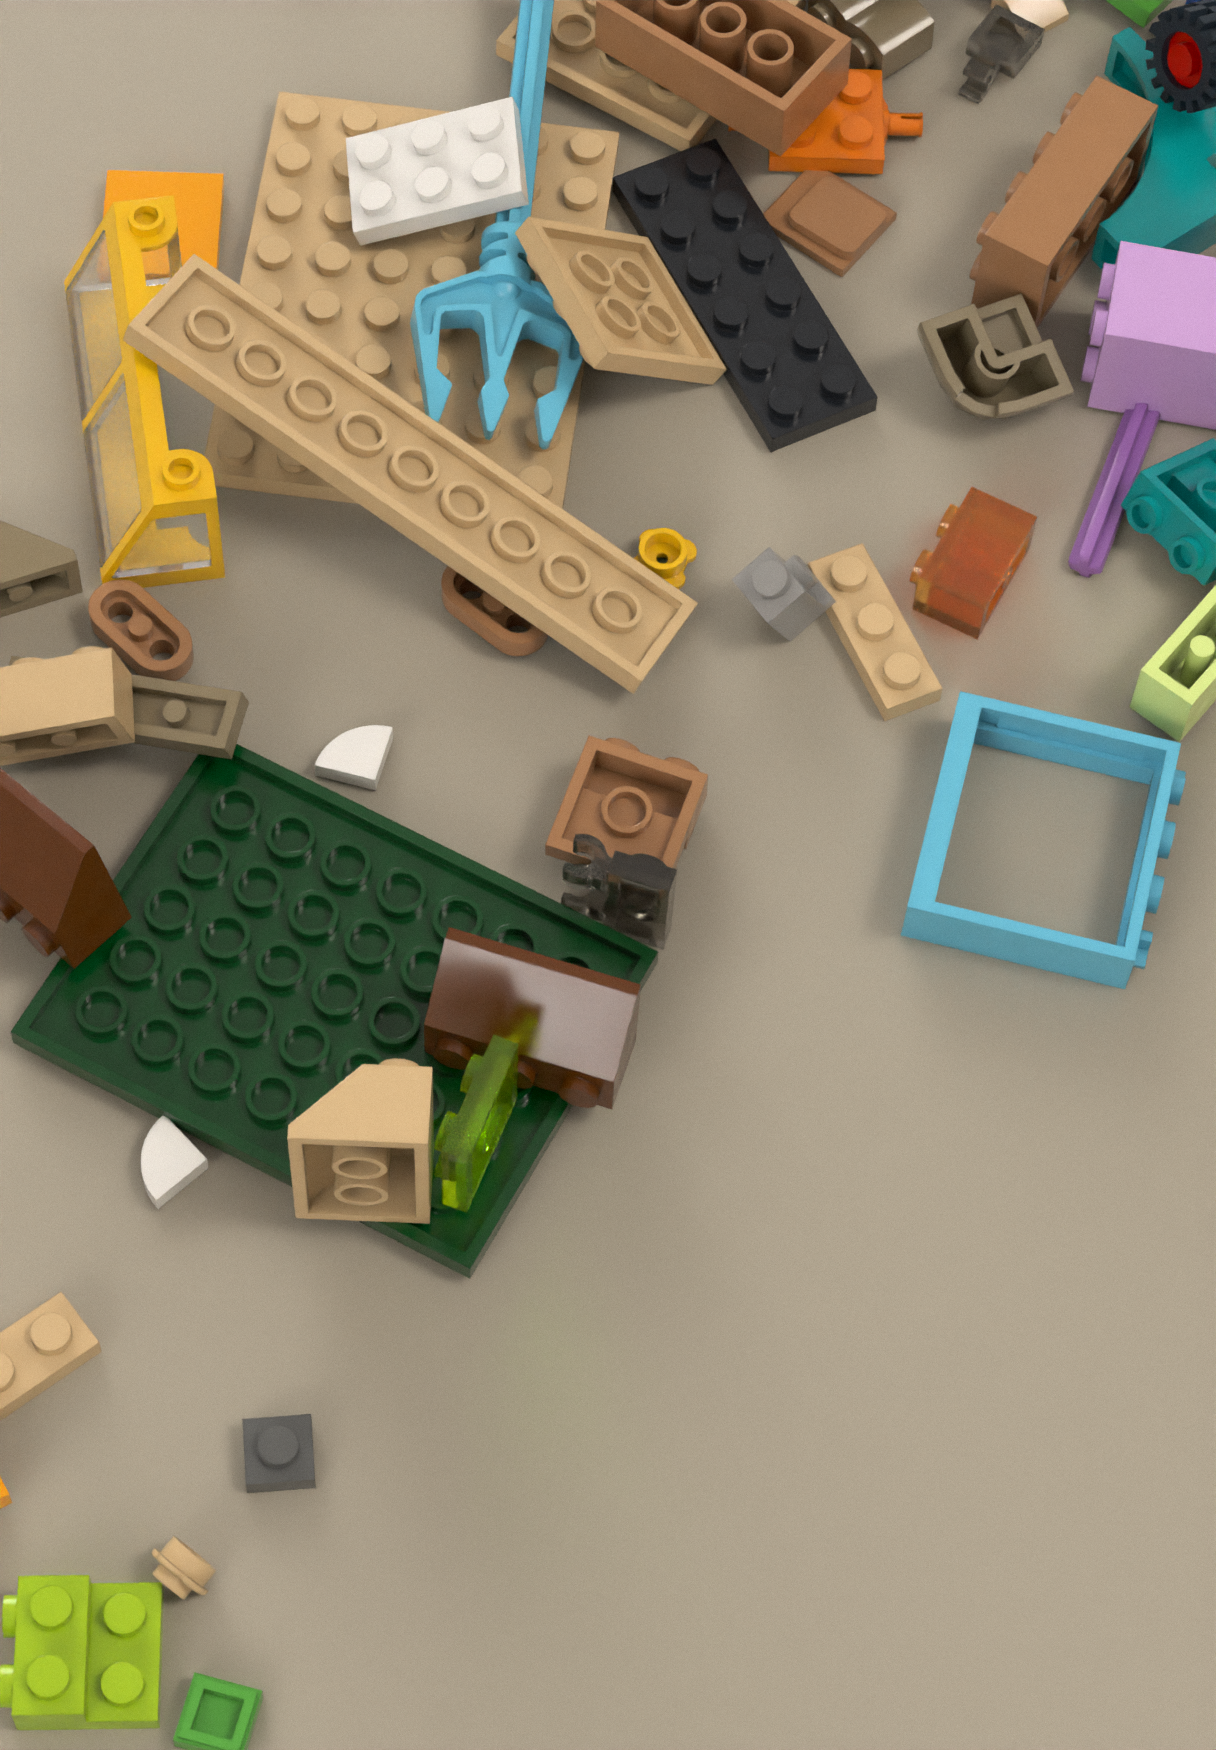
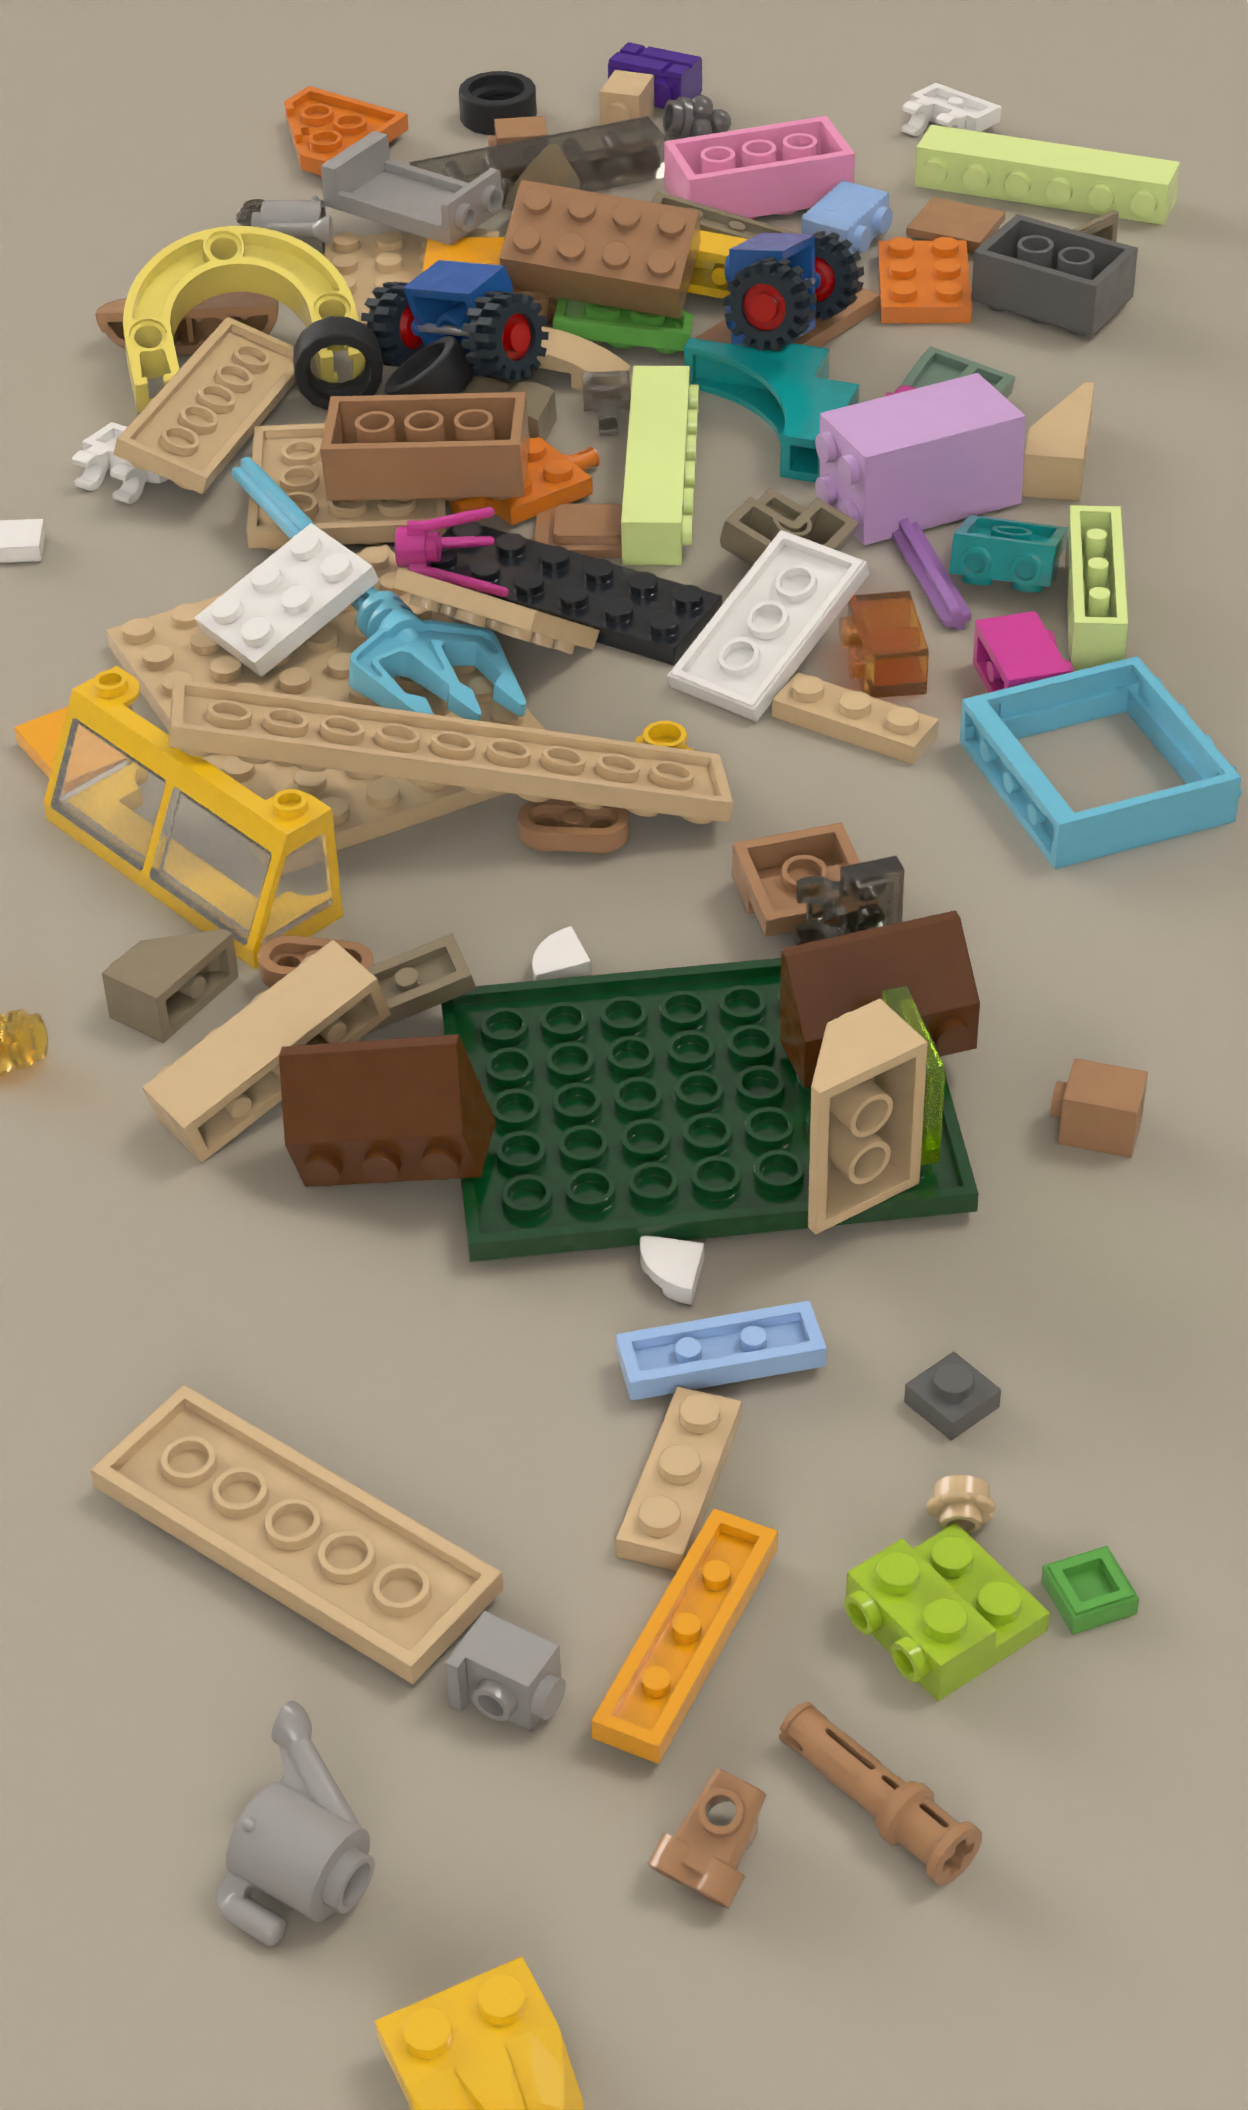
camera: 30 degrees left, 20 degrees down
(126, 1279) = (720, 1350): none -> light blue plate
(628, 170) = (419, 547): none -> dark pink plant
(666, 1245) = (1100, 1107): none -> medium nougat brick
(784, 592) = (778, 704): light grey brick -> none
(874, 471) = (768, 625): none -> white tile
(959, 182) = (660, 466): none -> yellowish green brick
(1063, 198) = (742, 425): medium nougat brick -> none
(1082, 662) = (1015, 651): none -> dark pink brick

